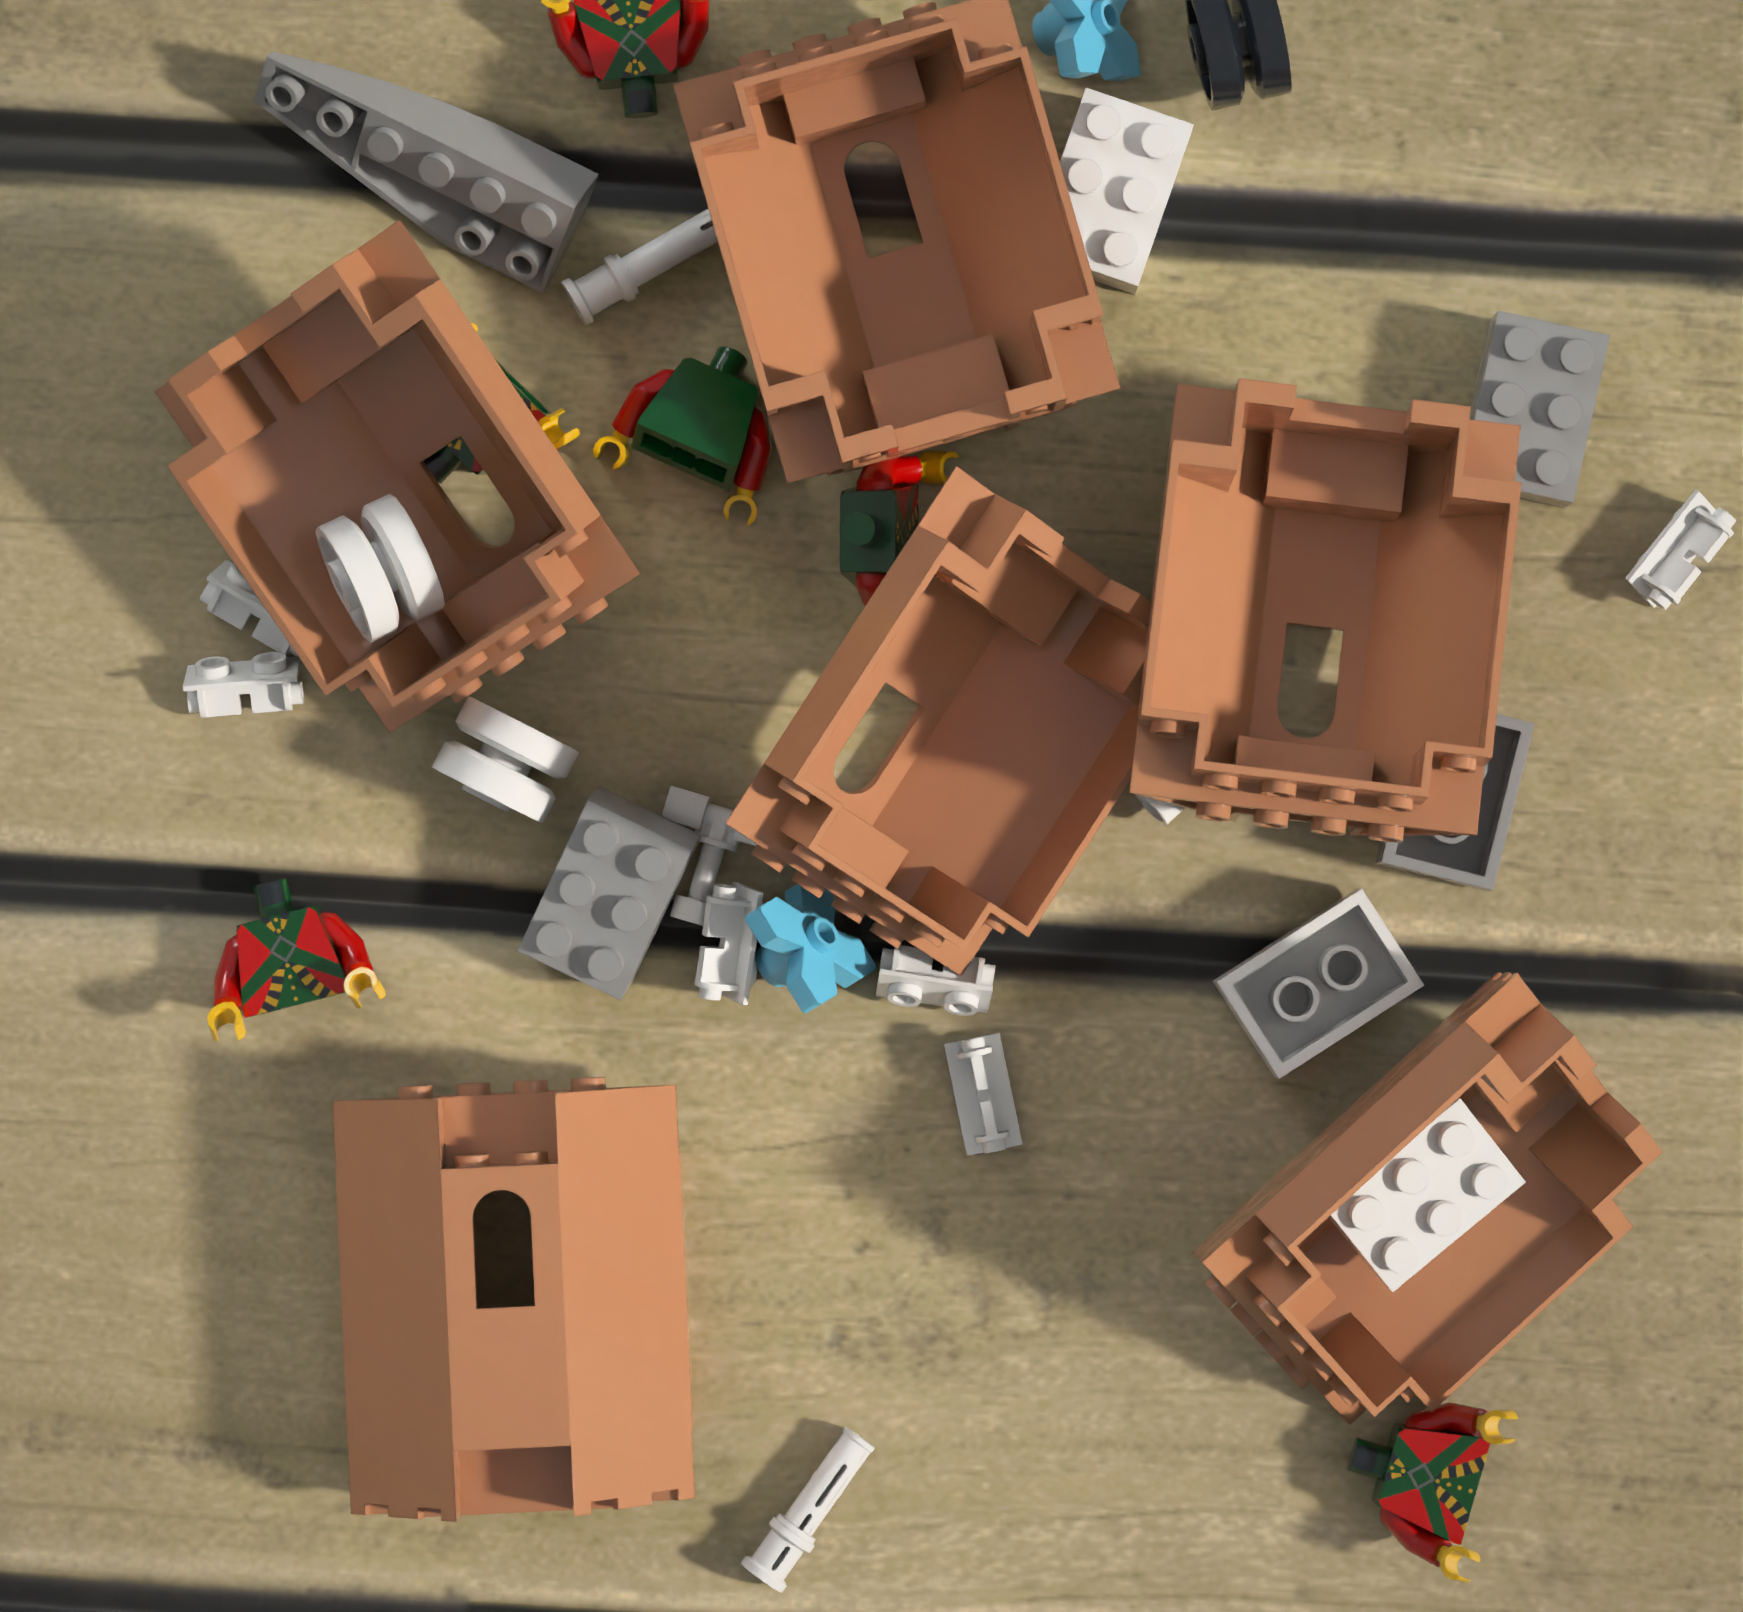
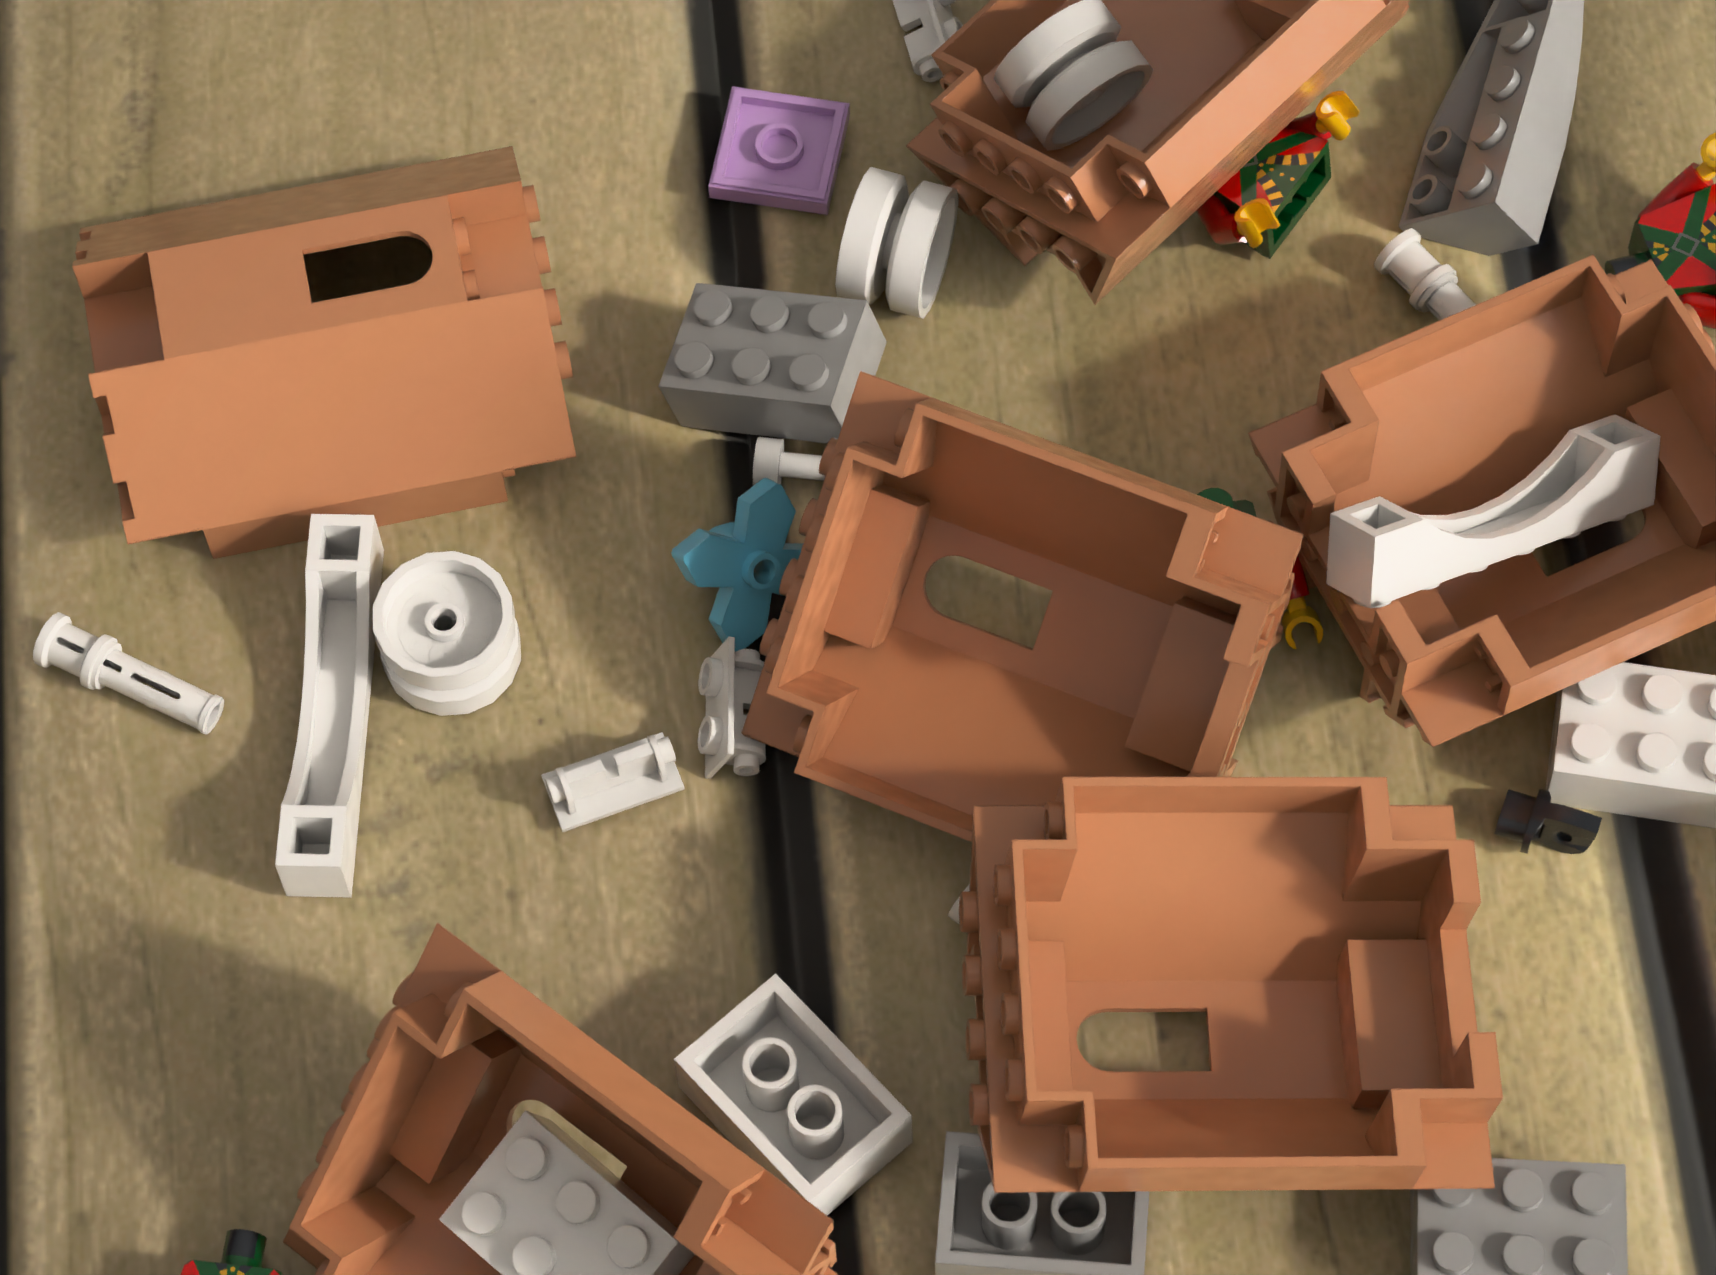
camera: 85 degrees right, 25 degrees down
(287, 961) = (649, 91): torso -> none
(362, 850) = (779, 150): none -> lavender plate
(699, 423) = (1280, 368): dark green torso -> none
(731, 966) = (712, 490): white hinge -> none
(828, 1187) = (447, 633): none -> white wheel
(880, 1331) = (327, 770): none -> white arch
(937, 362) = (1587, 480): none -> white arch
(1157, 312) = (1552, 824): none -> black piece

